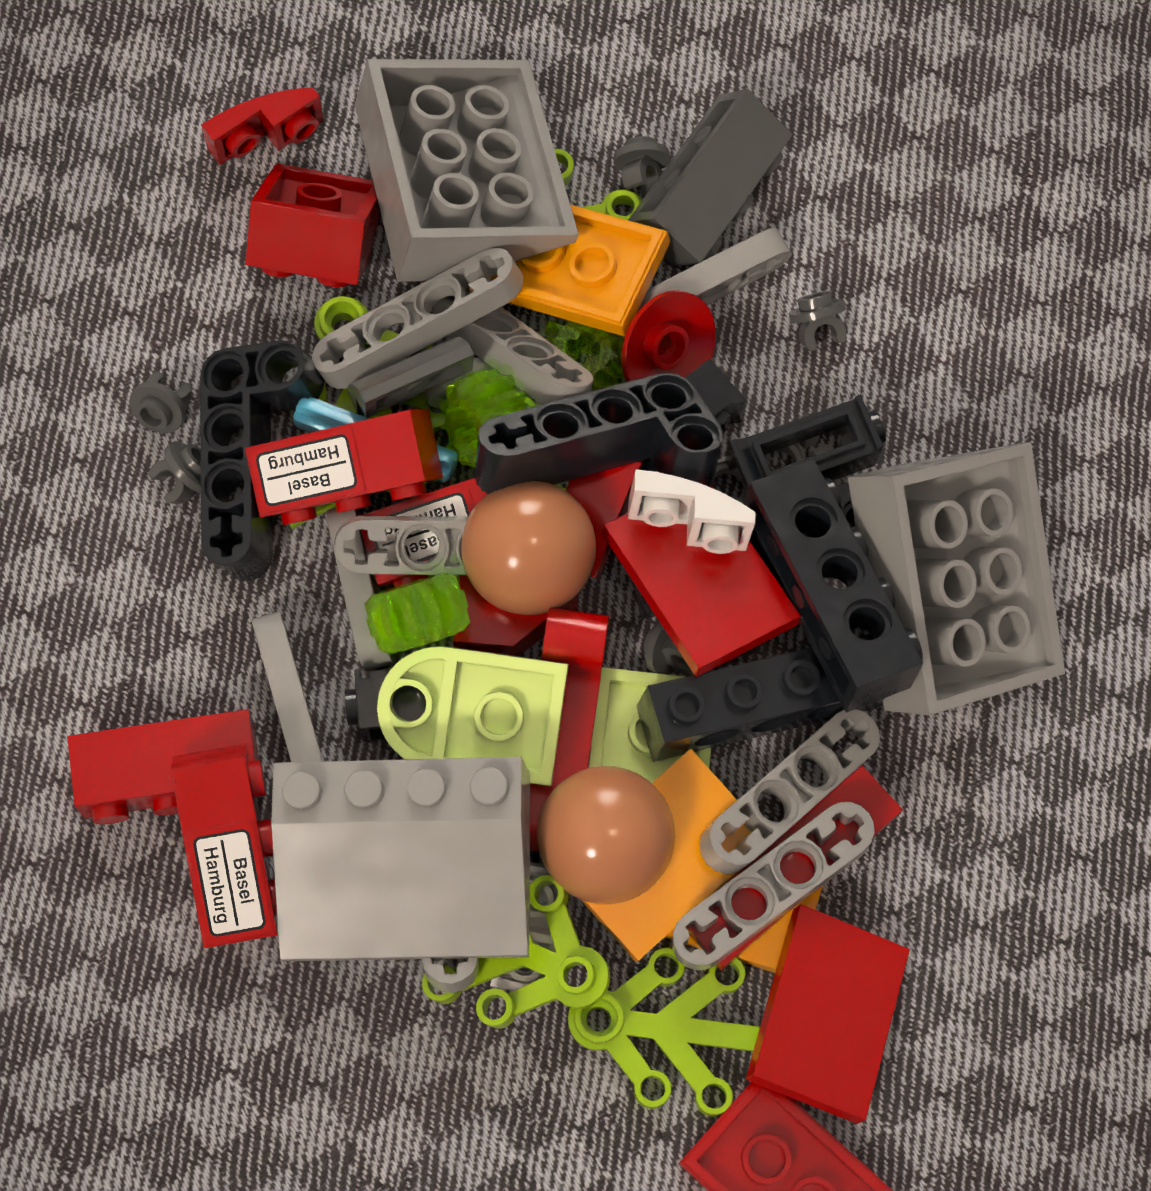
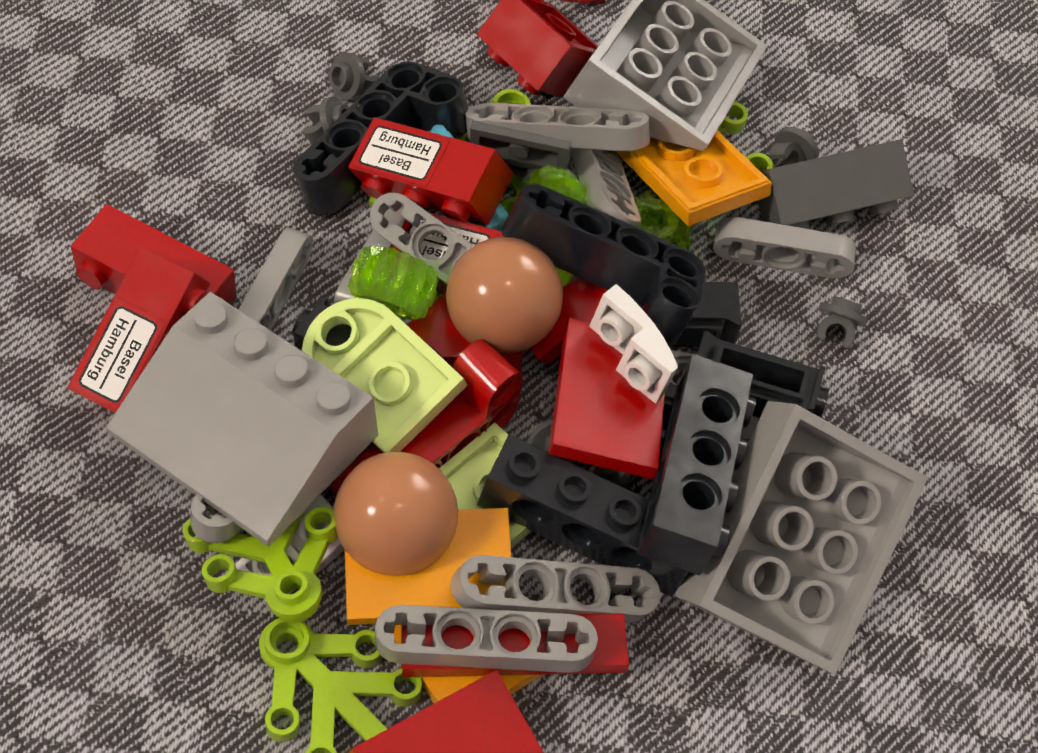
camera: 35 degrees right, 15 degrees down
(668, 336) = (738, 247): red dish -> none

